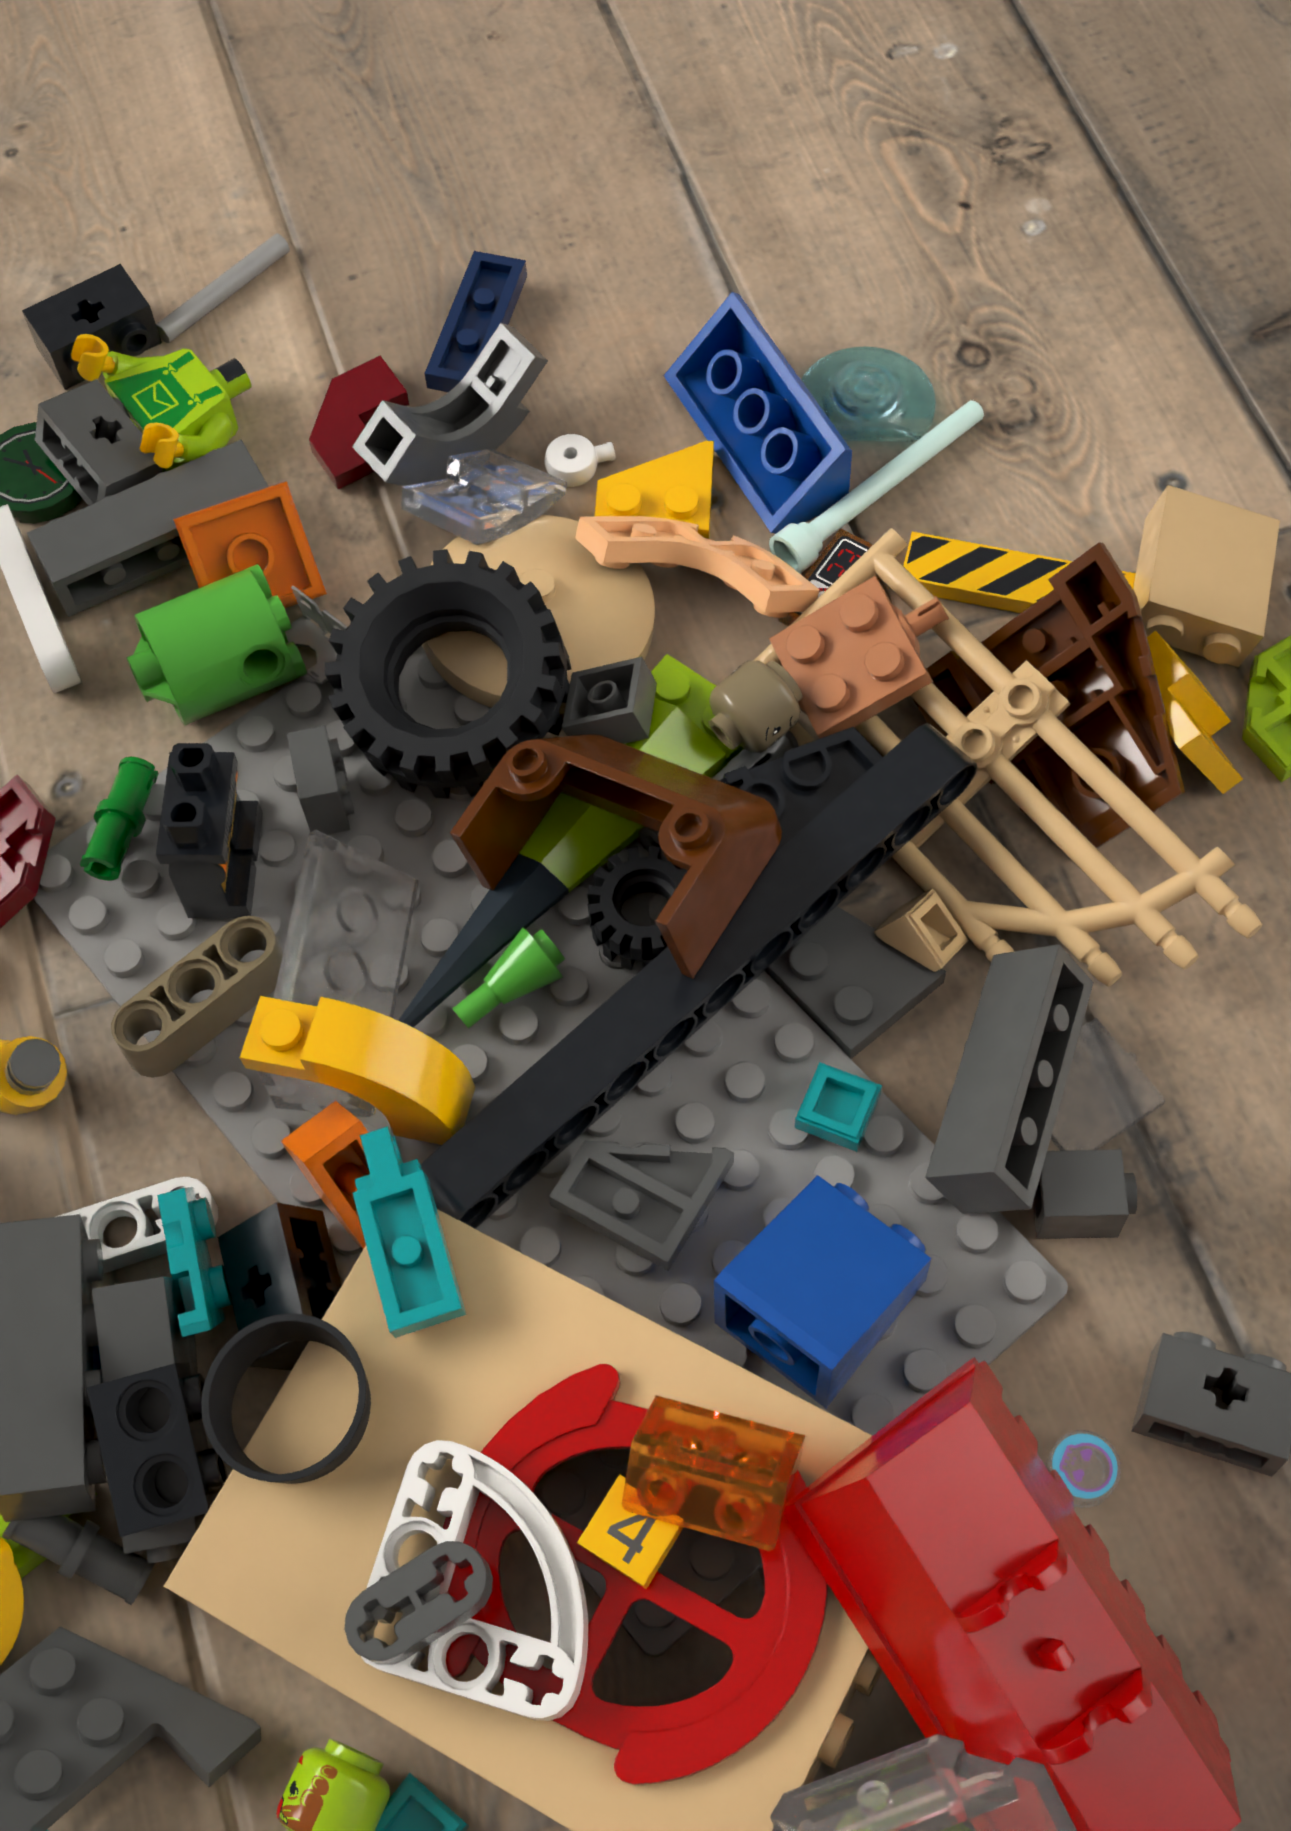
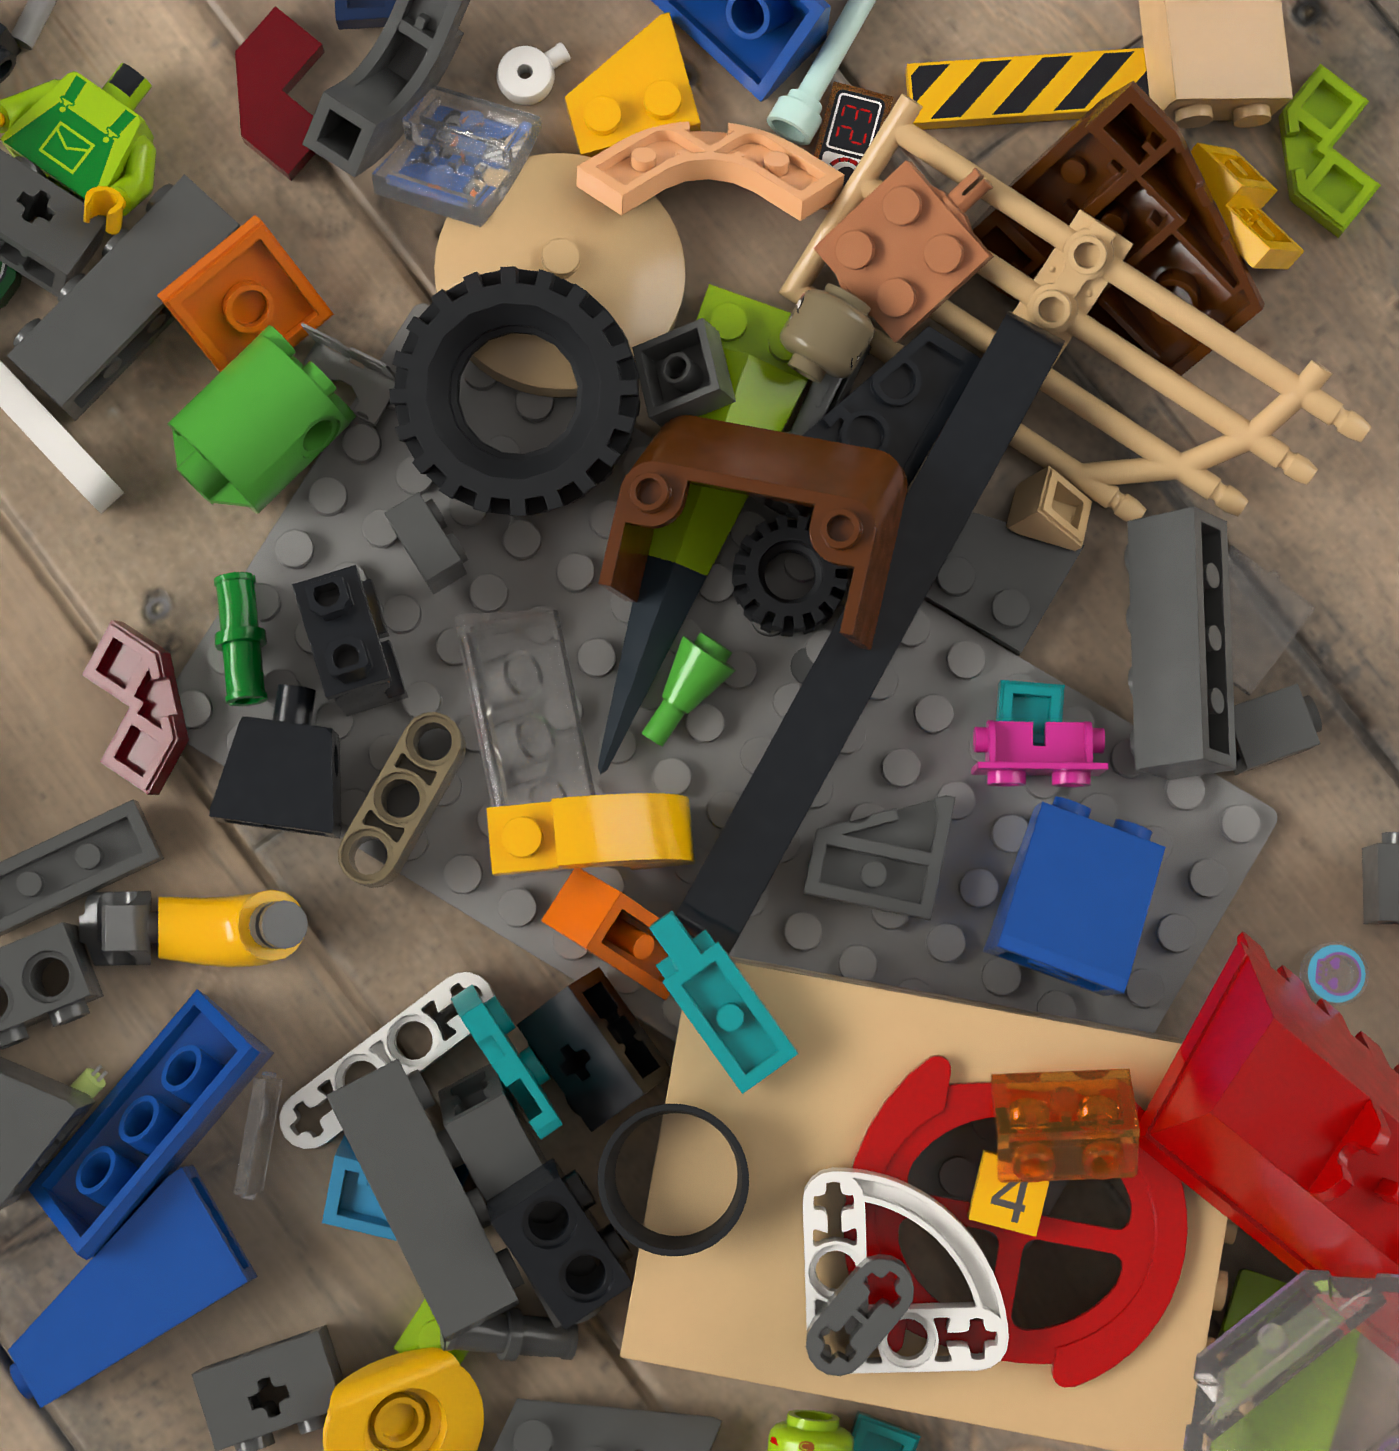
camera: 25 degrees left, 20 degrees up
(100, 937) = (283, 771): none -> black torso
(802, 1136) = (1065, 753): none -> dark pink hinge

